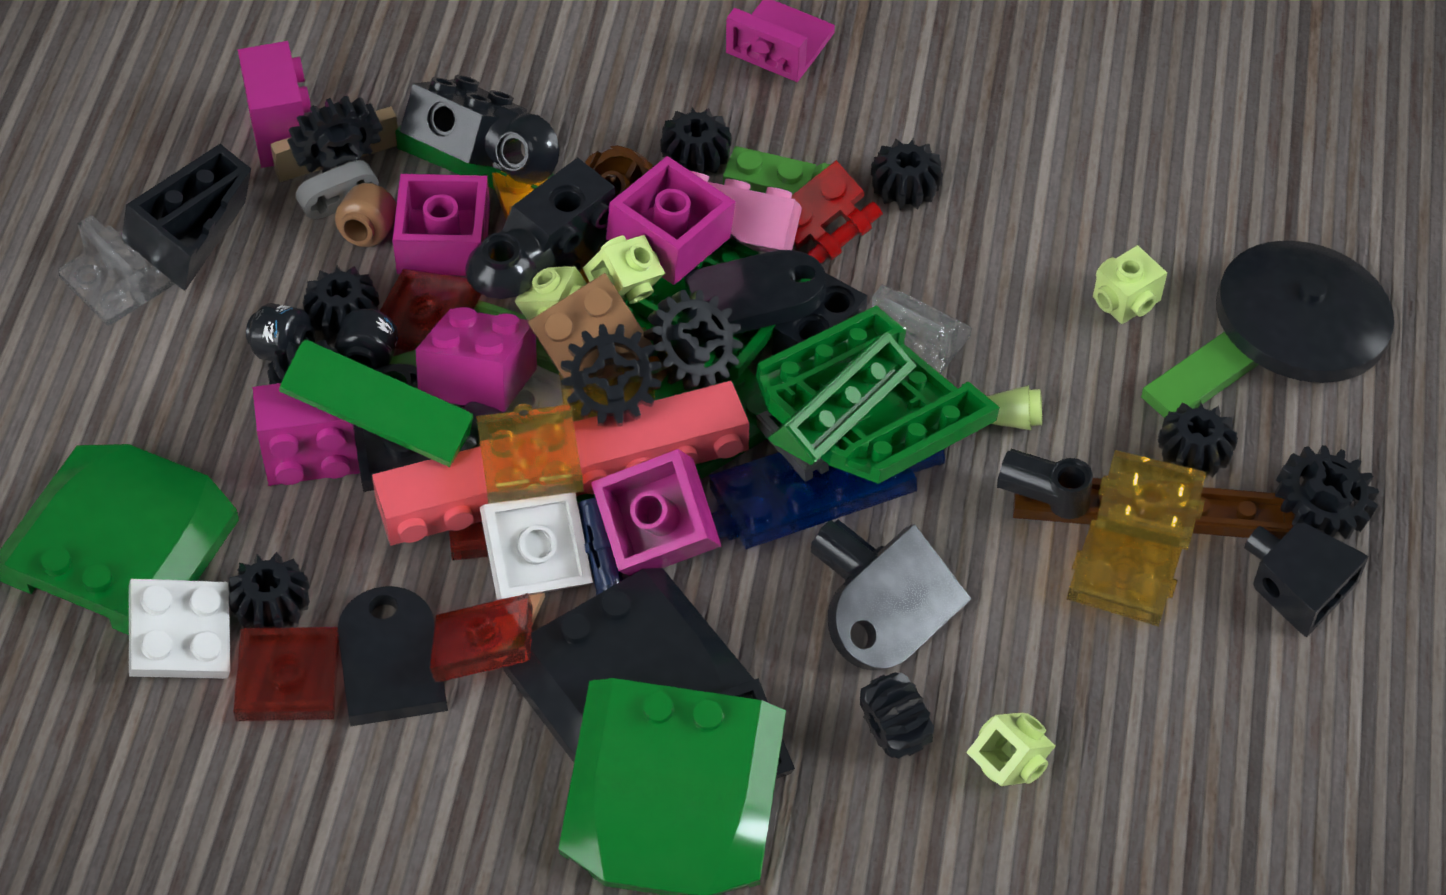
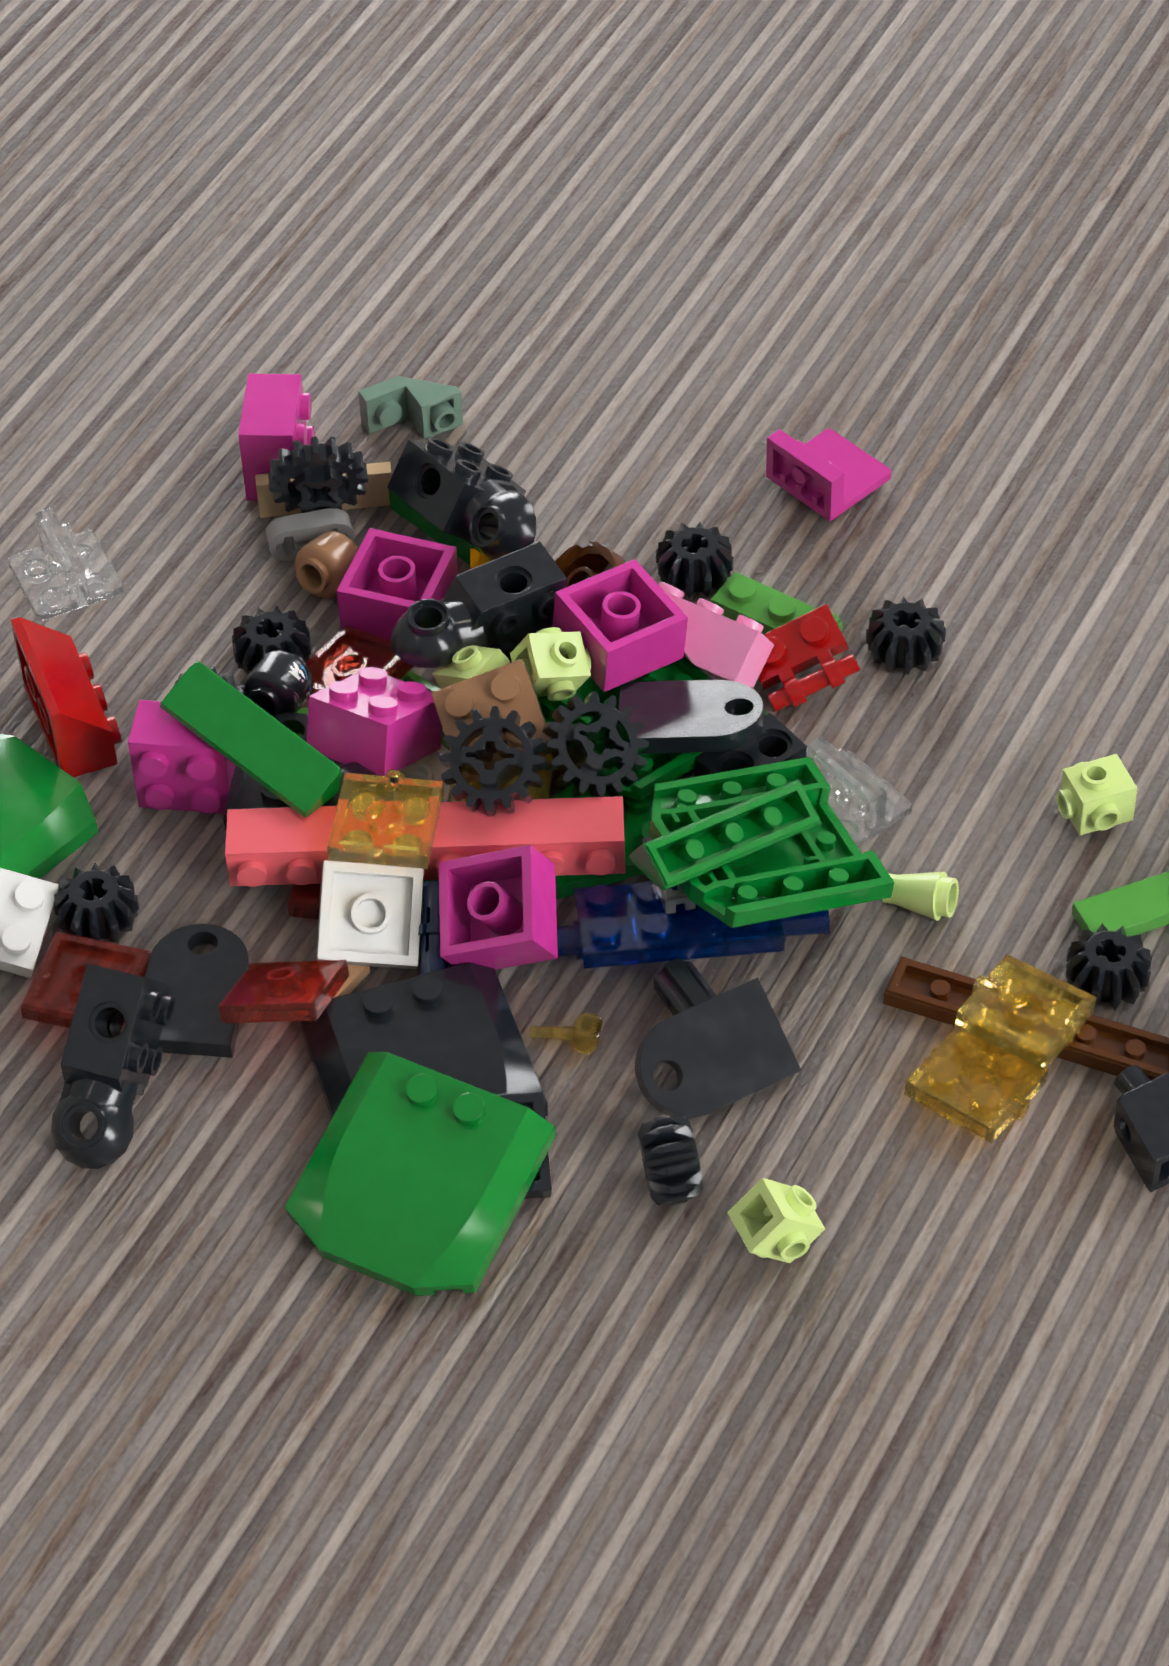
camera: 20 degrees right, 5 degrees down
(166, 399) = (65, 699): none -> red slope
(187, 214) = (149, 526): black wedge -> none
(275, 326) = (198, 646): black head -> none
(345, 754) = (109, 1066): none -> black brick
(397, 45) = (426, 404): none -> sand green slope
(759, 613) = (582, 1036): none -> clear yellow hand
(1048, 482) = (933, 974): black piece -> none

